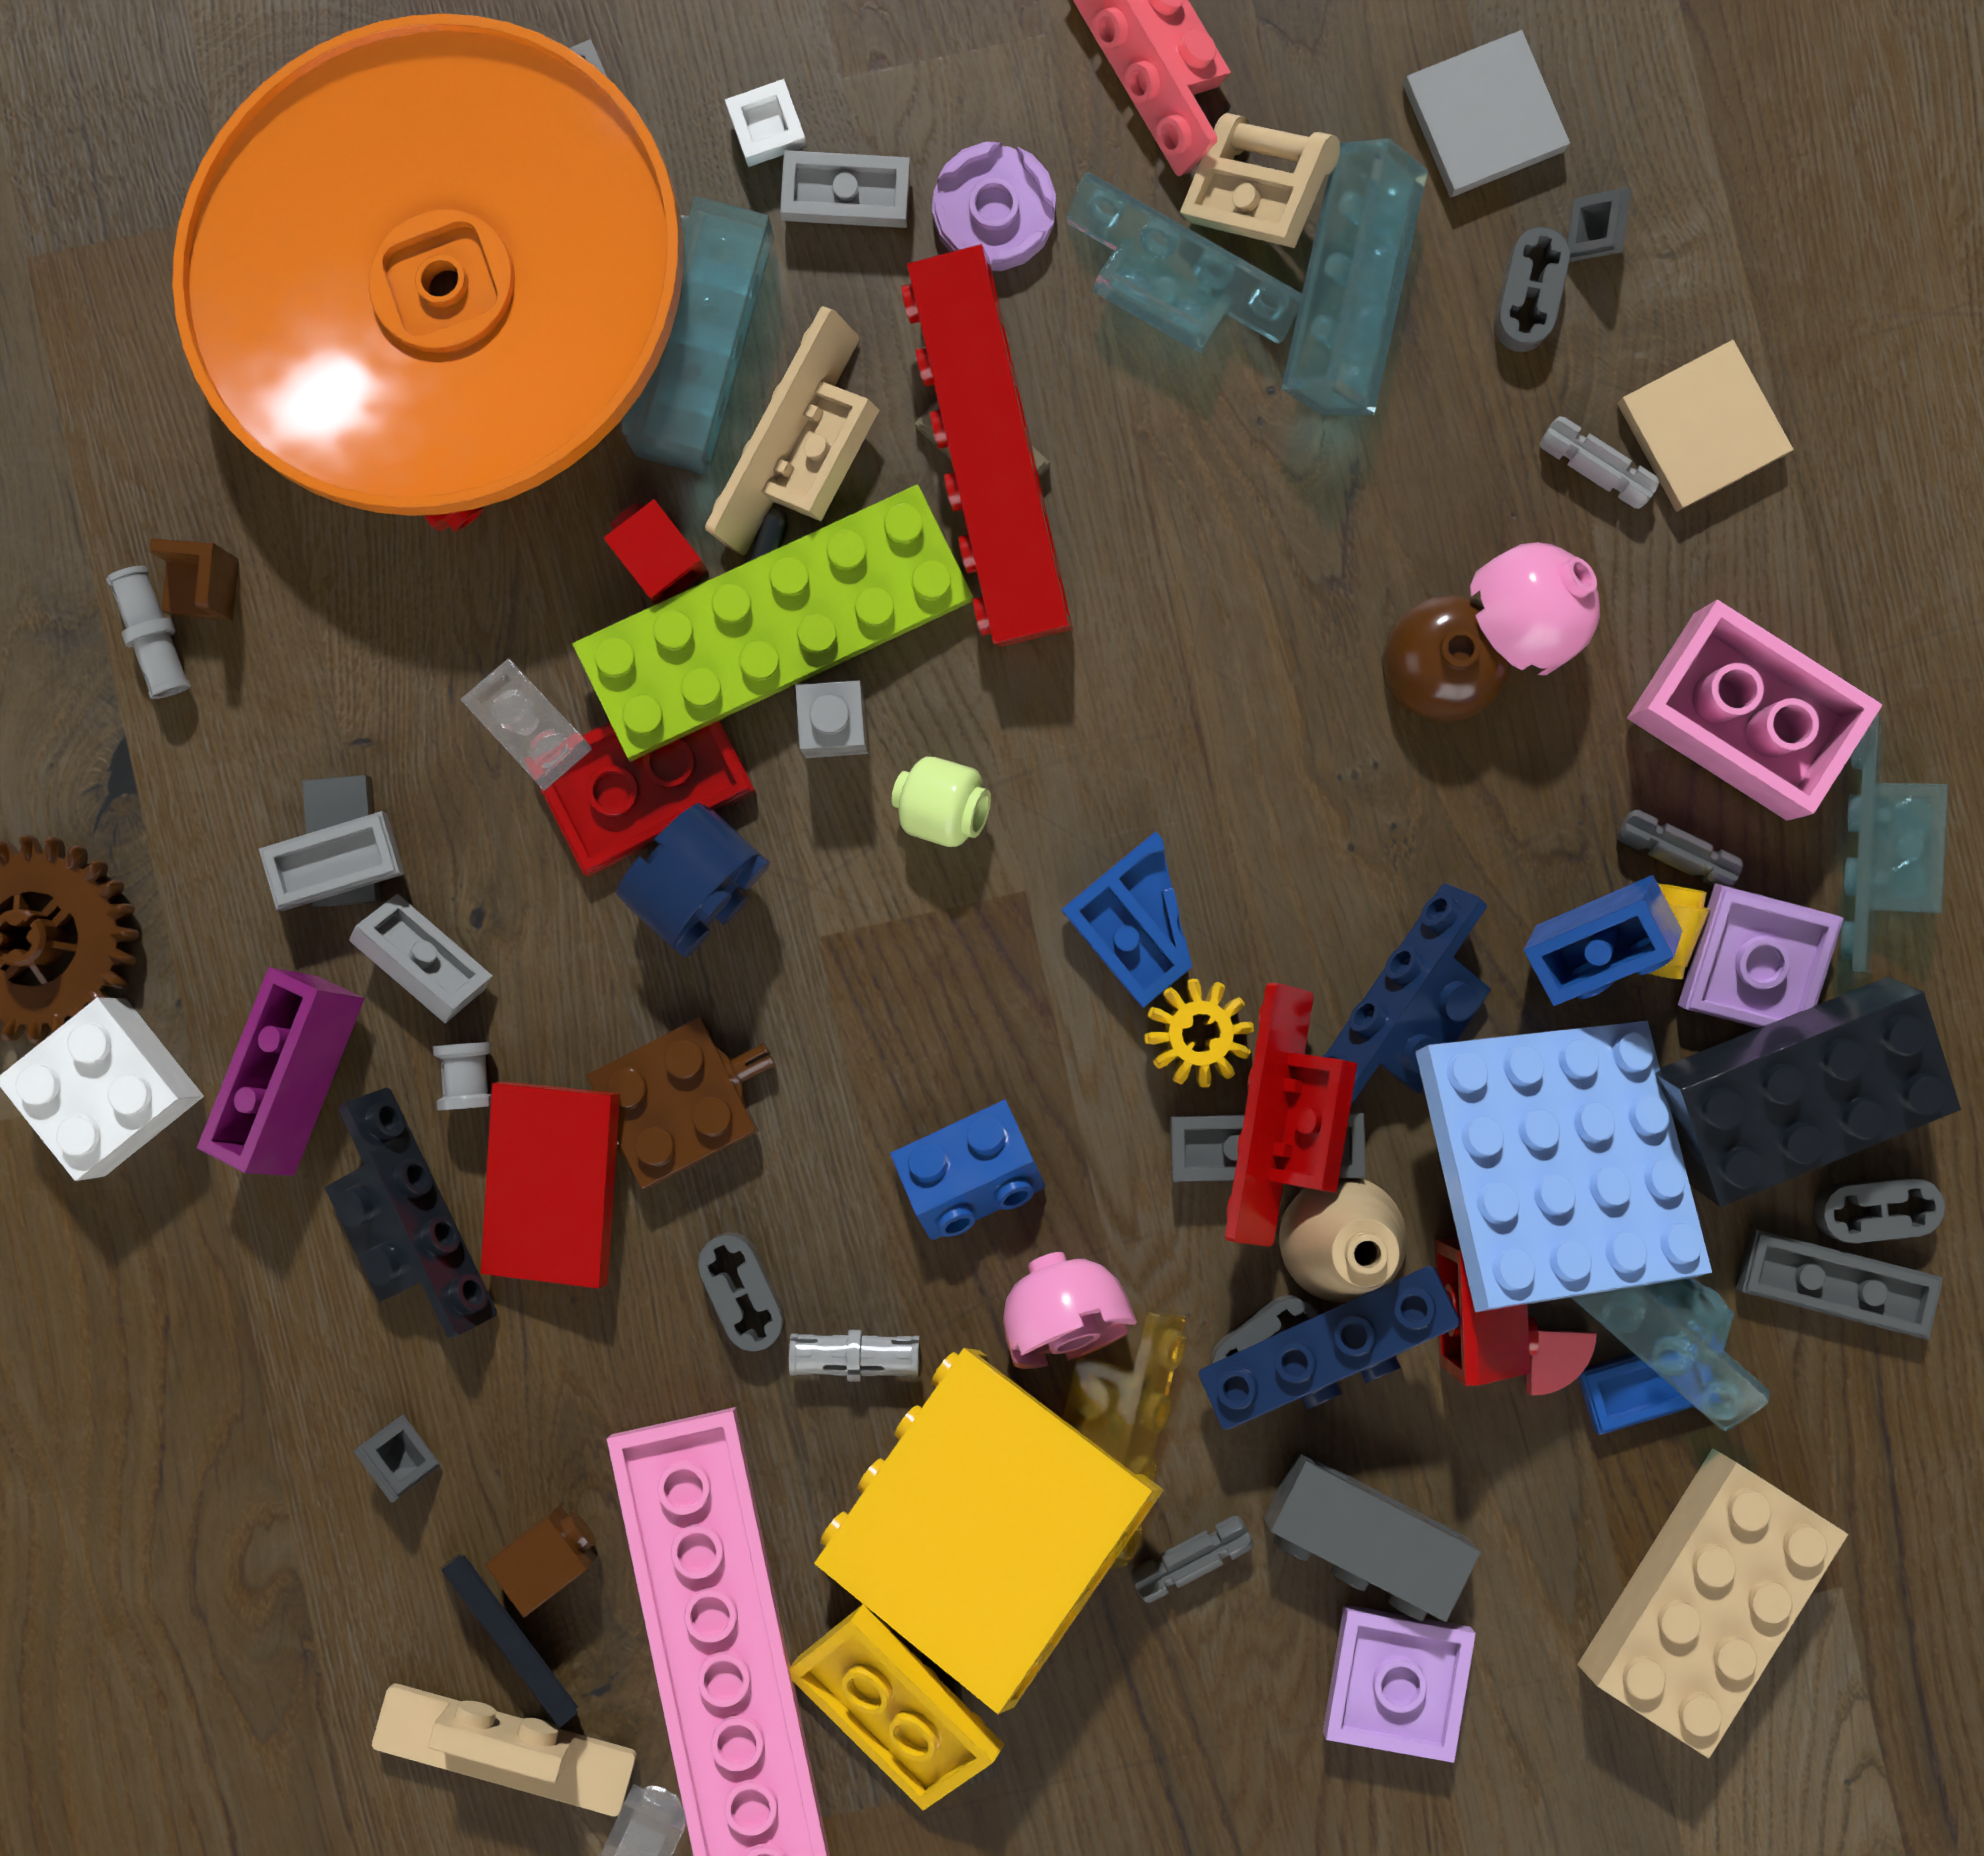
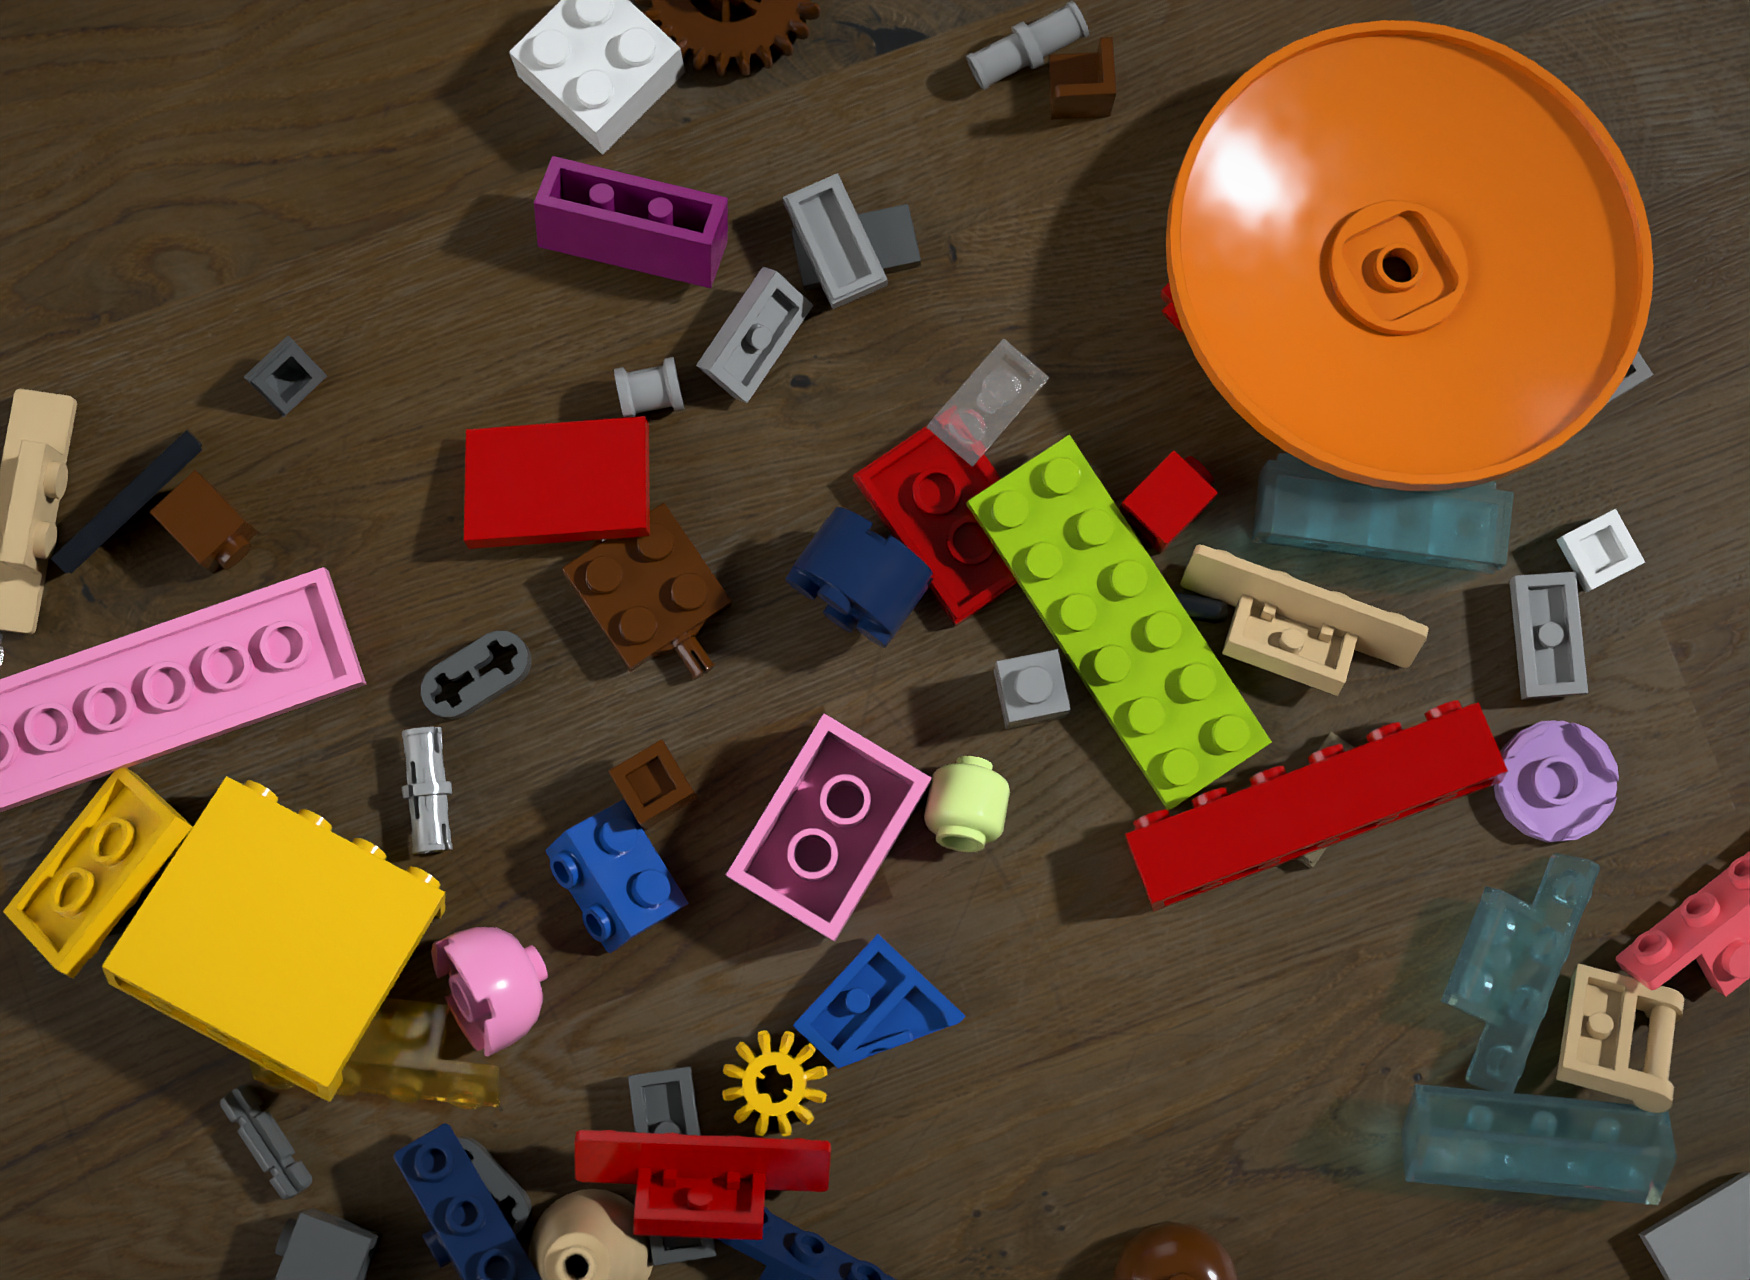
camera: 80 degrees right, 5 degrees down
(402, 1220) = (508, 350): black bracket -> none
(879, 1120) = (653, 784): none -> reddish brown panel
(948, 943) = (829, 827): none -> bright pink brick

